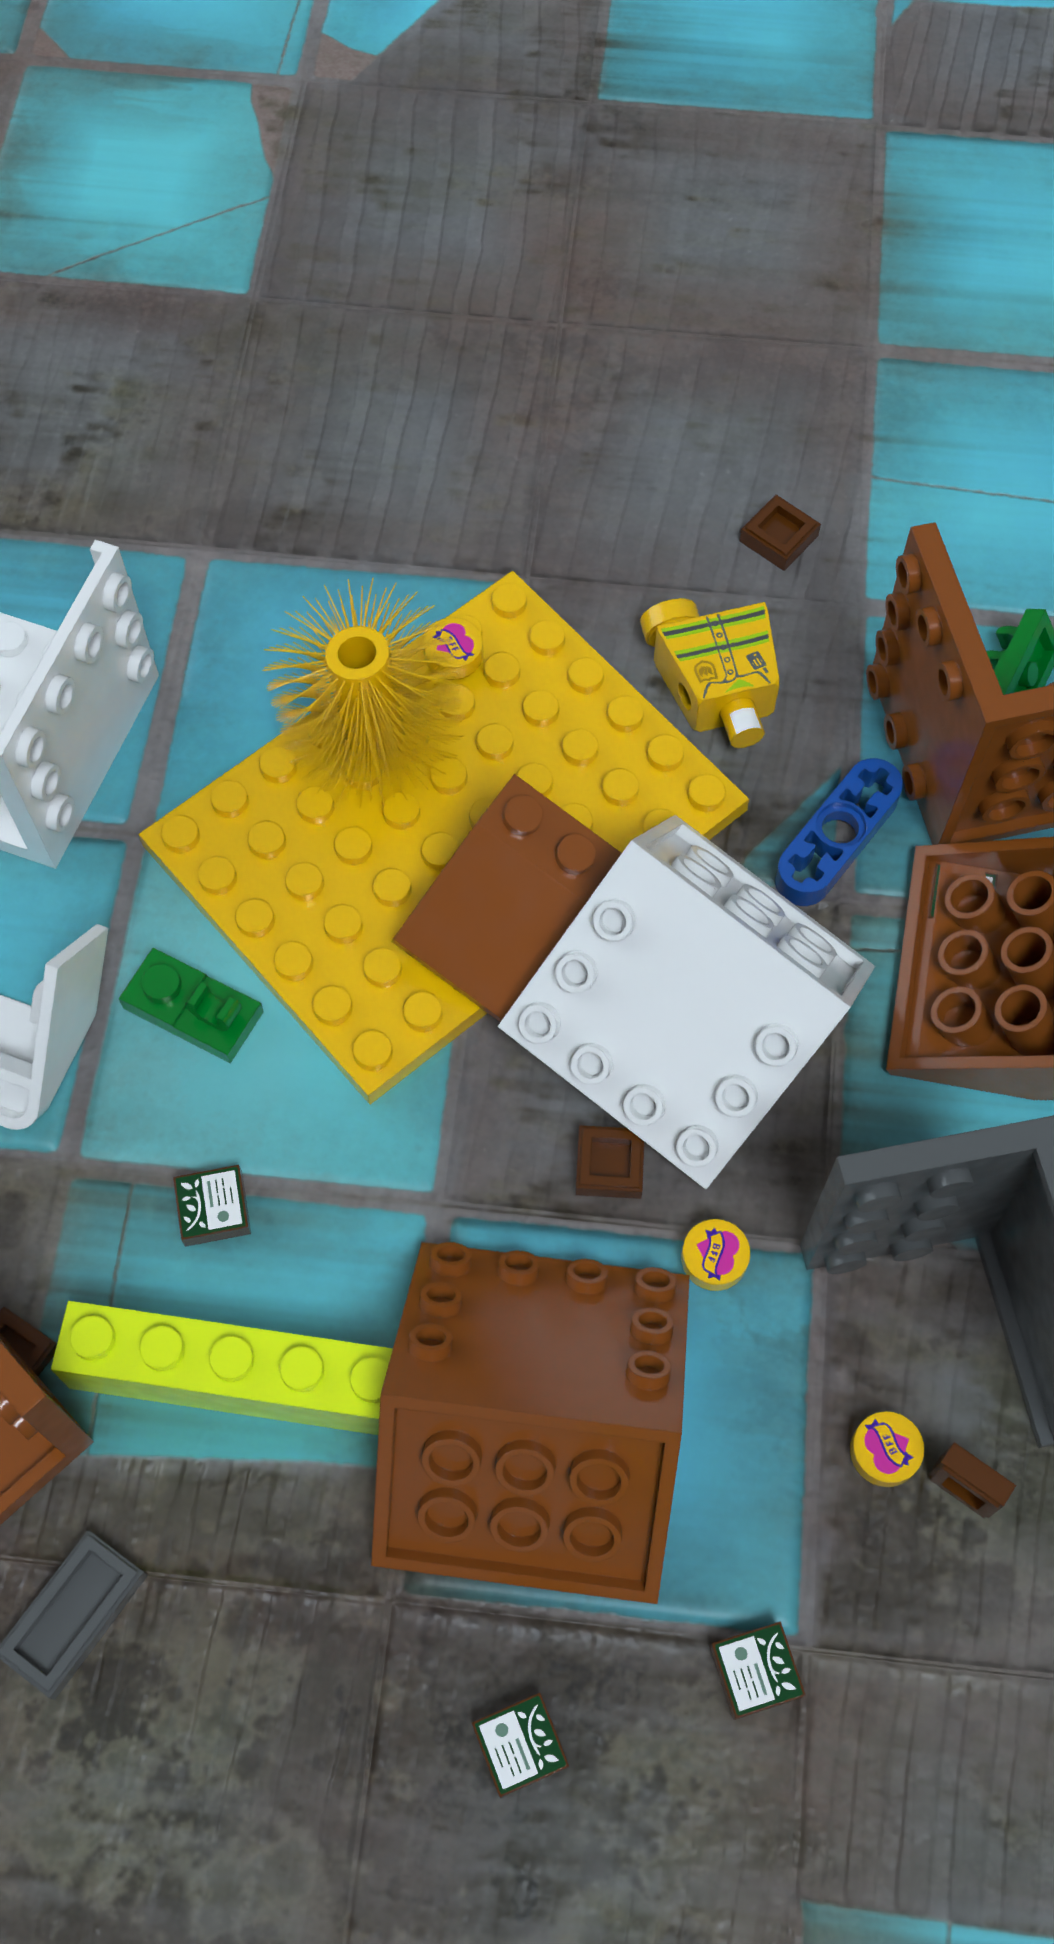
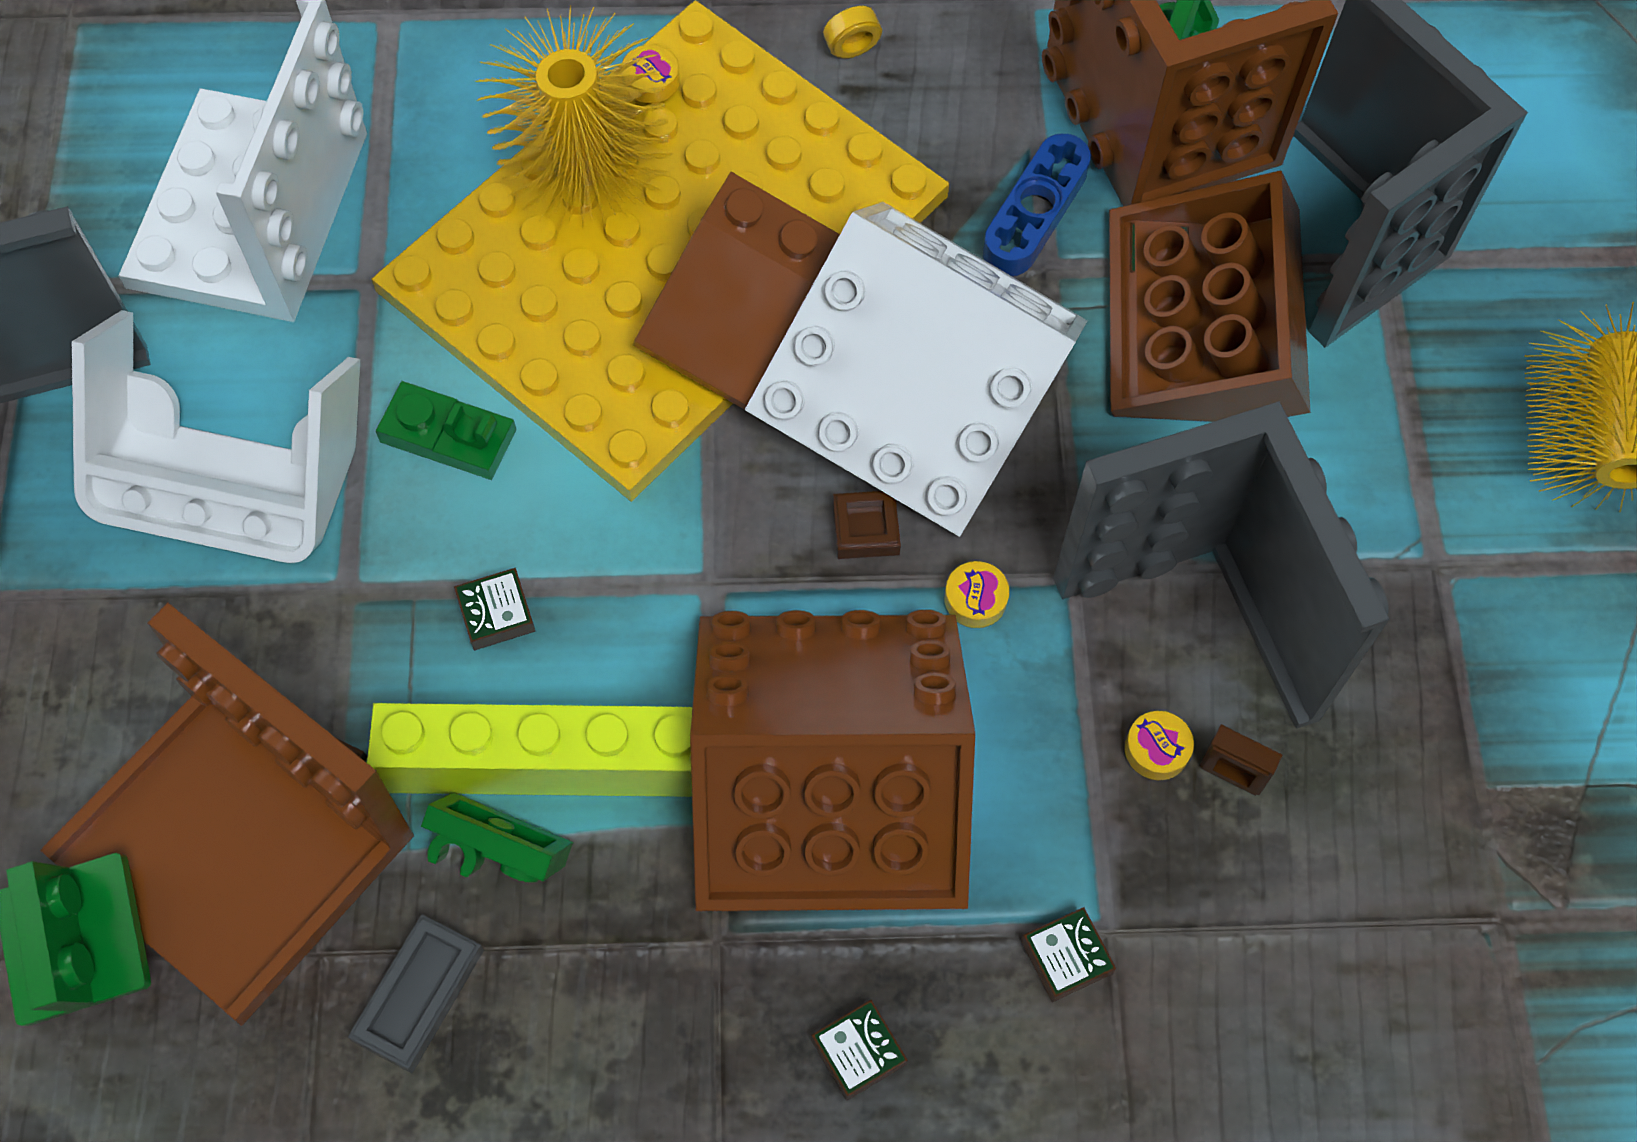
camera: 10 degrees left, 0 degrees up
(174, 1456) = (483, 832): none -> green plate
(721, 670) = (906, 69): yellow torso -> none

